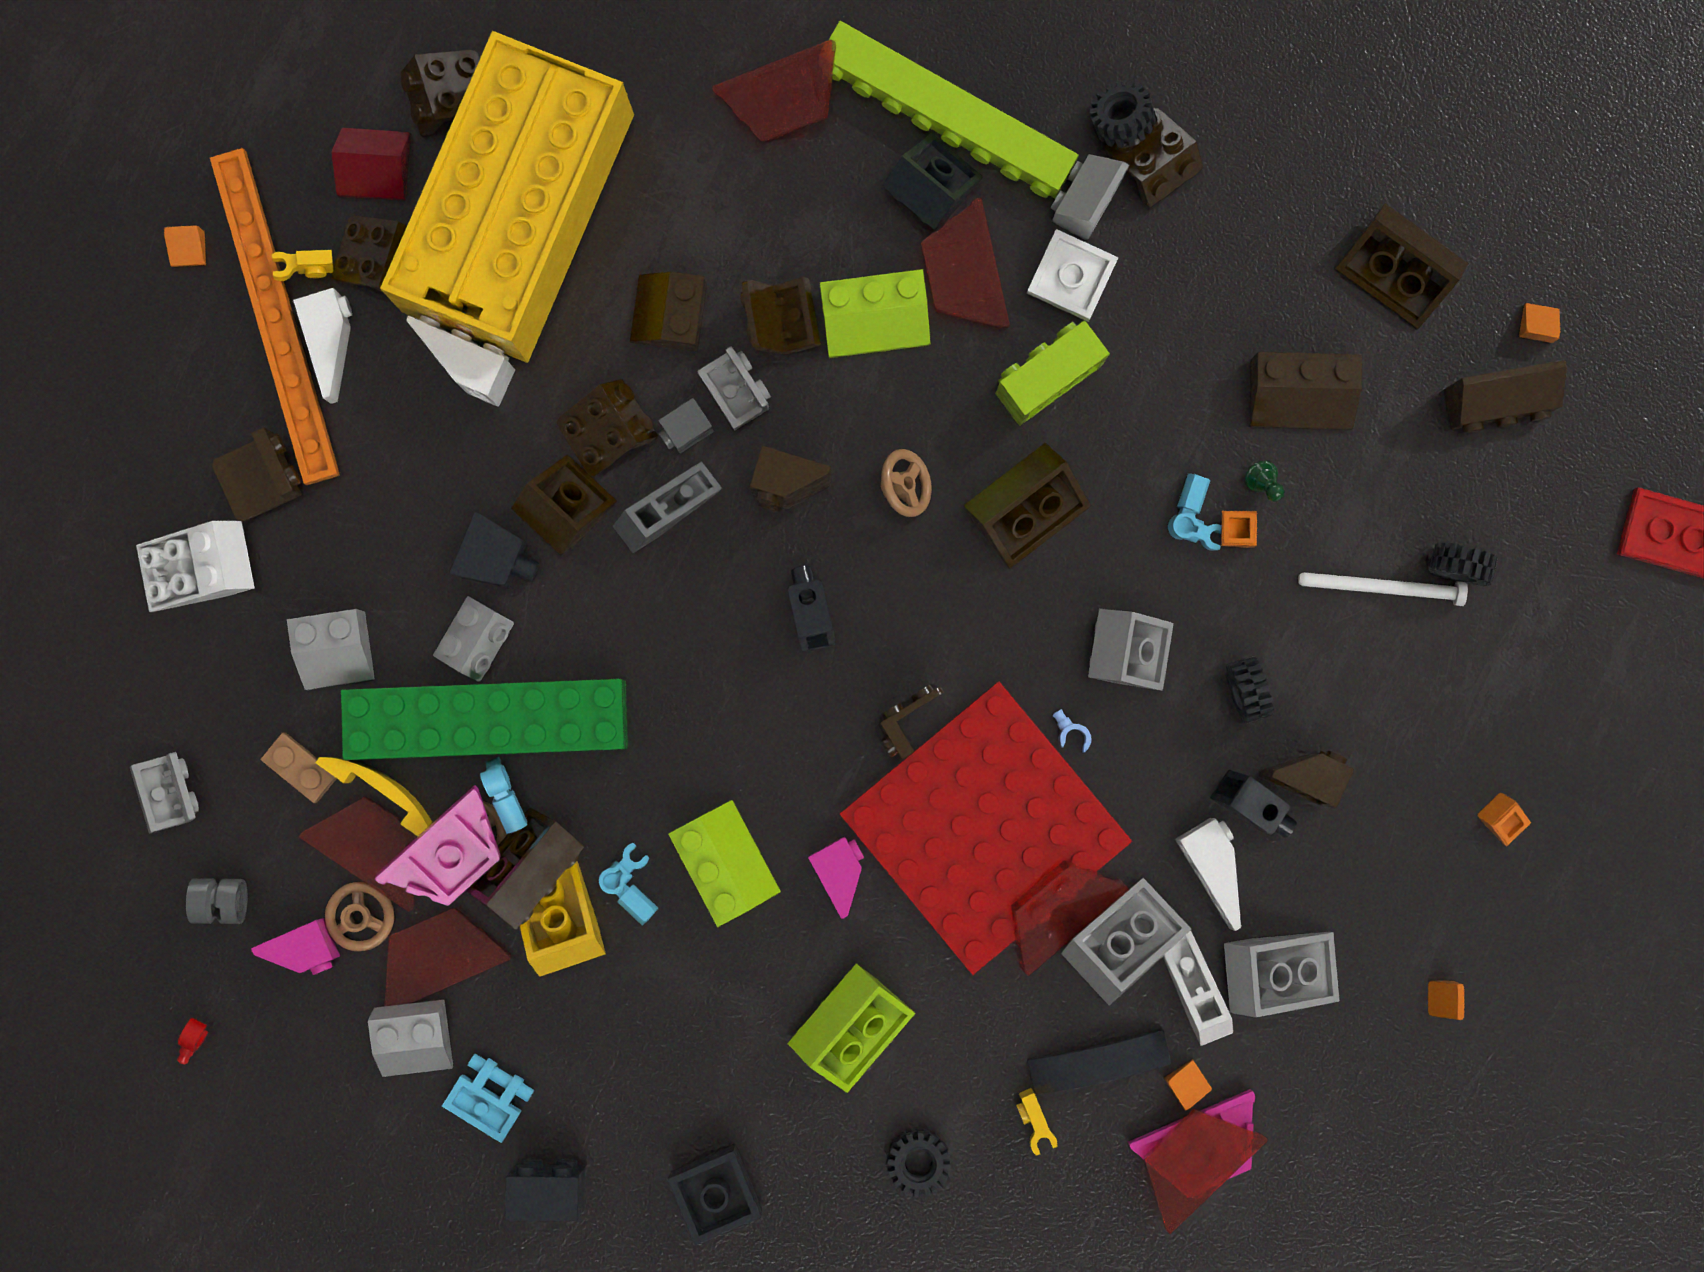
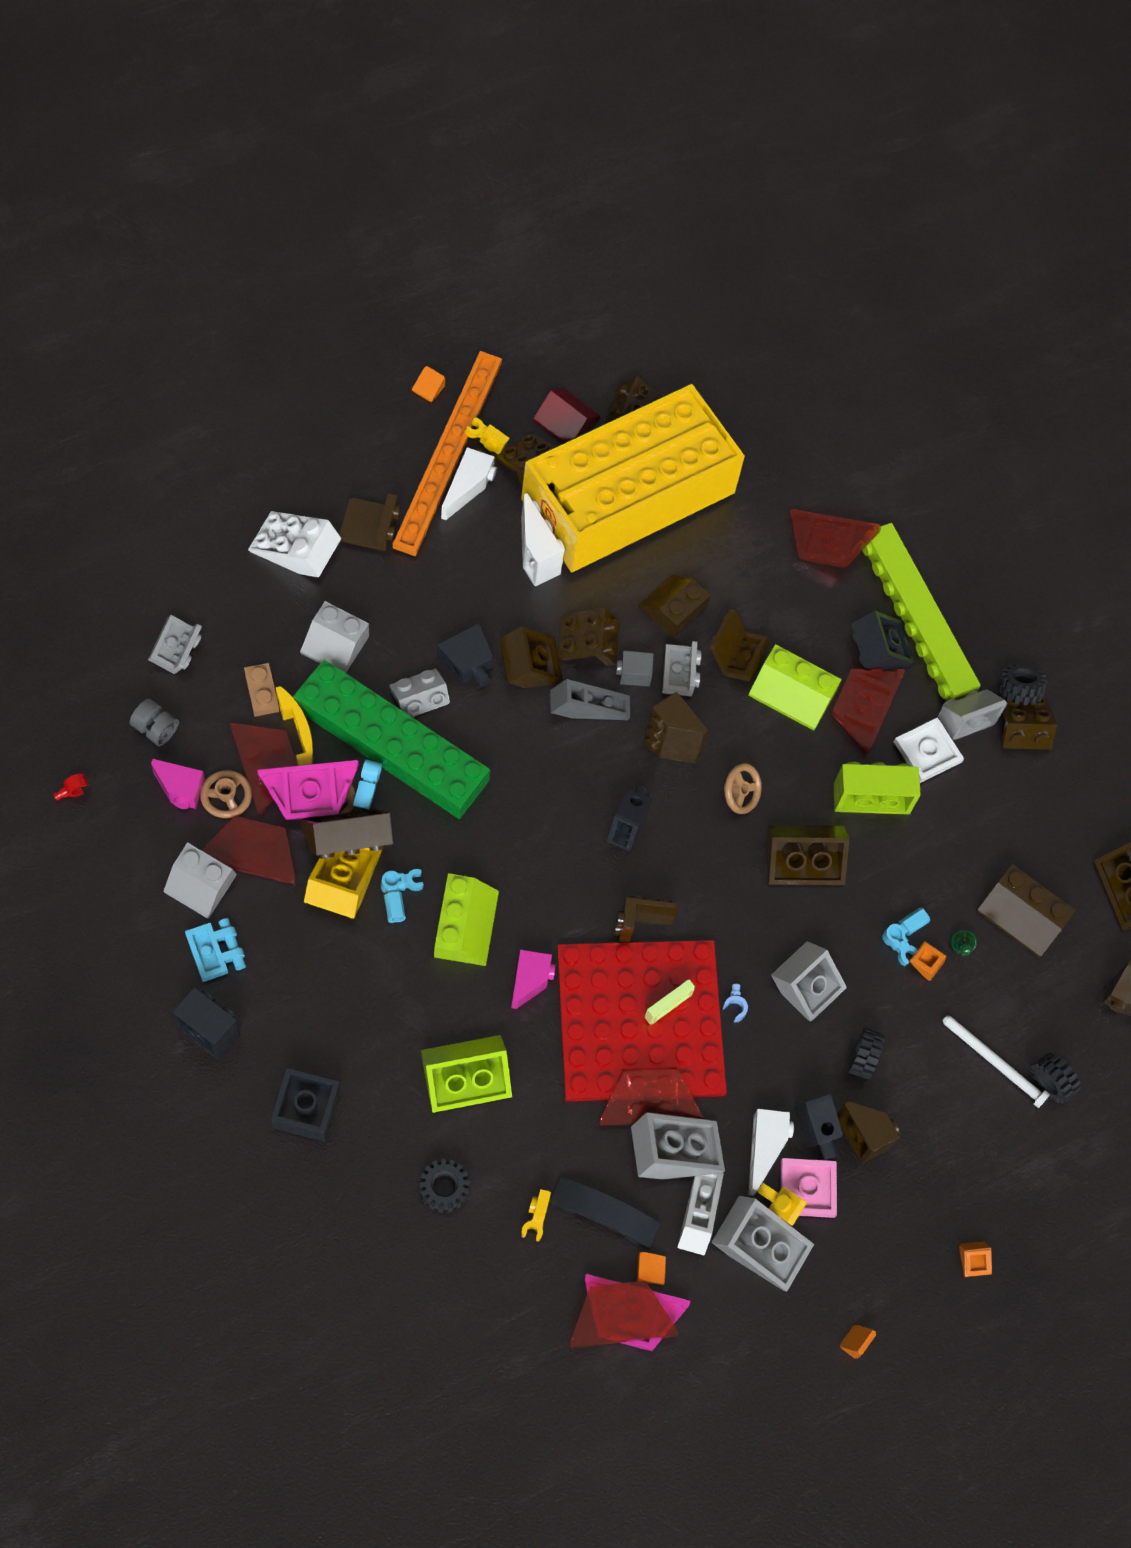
camera: 30 degrees right, 20 degrees down
(1007, 794) = (669, 1002): none -> yellowish green tile
(1280, 920) = (785, 1203): none -> yellow plate
(1287, 878) = (813, 1182): none -> bright pink plate

